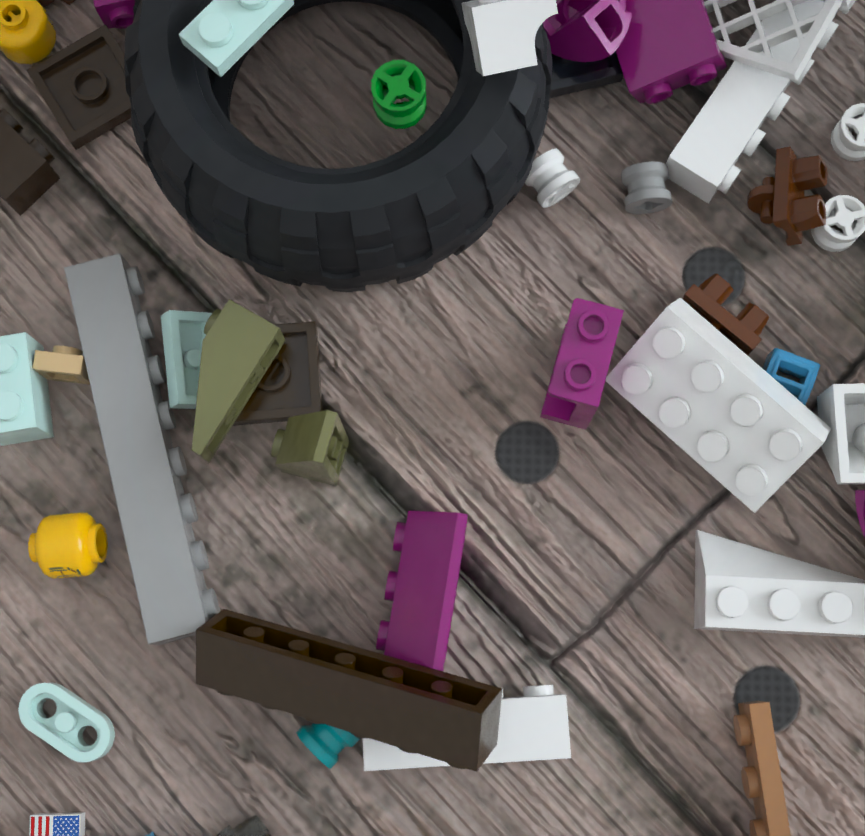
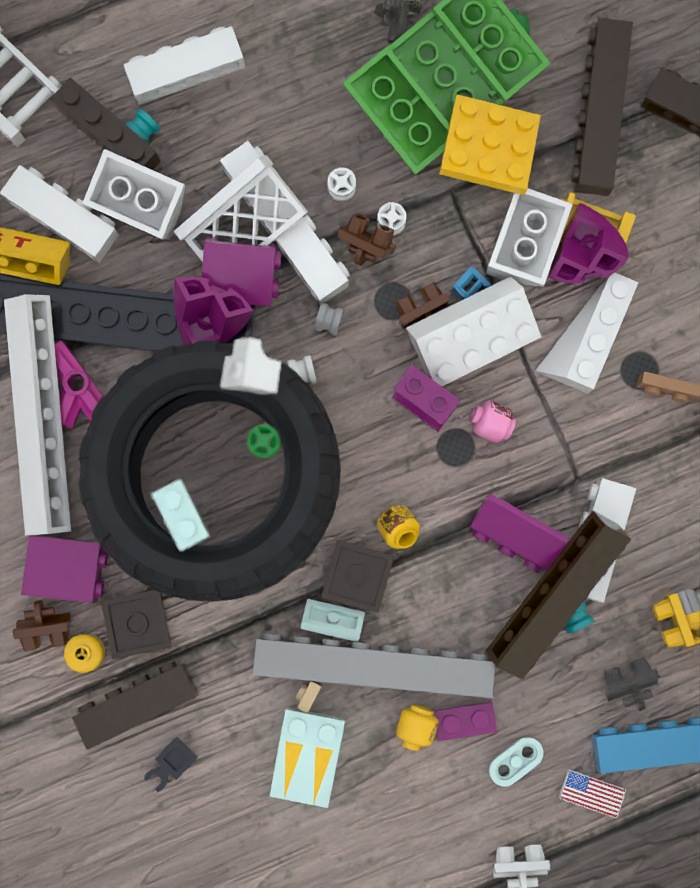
camera: 75 degrees left, 5 degrees up
(106, 620) = (465, 721): none -> magenta plate
(232, 363) = (349, 595): olive slope -> none
(312, 447) = (414, 568): olive slope -> none
(368, 403) = (398, 527): none -> yellow head
(588, 490) = (493, 421): none -> bright pink head

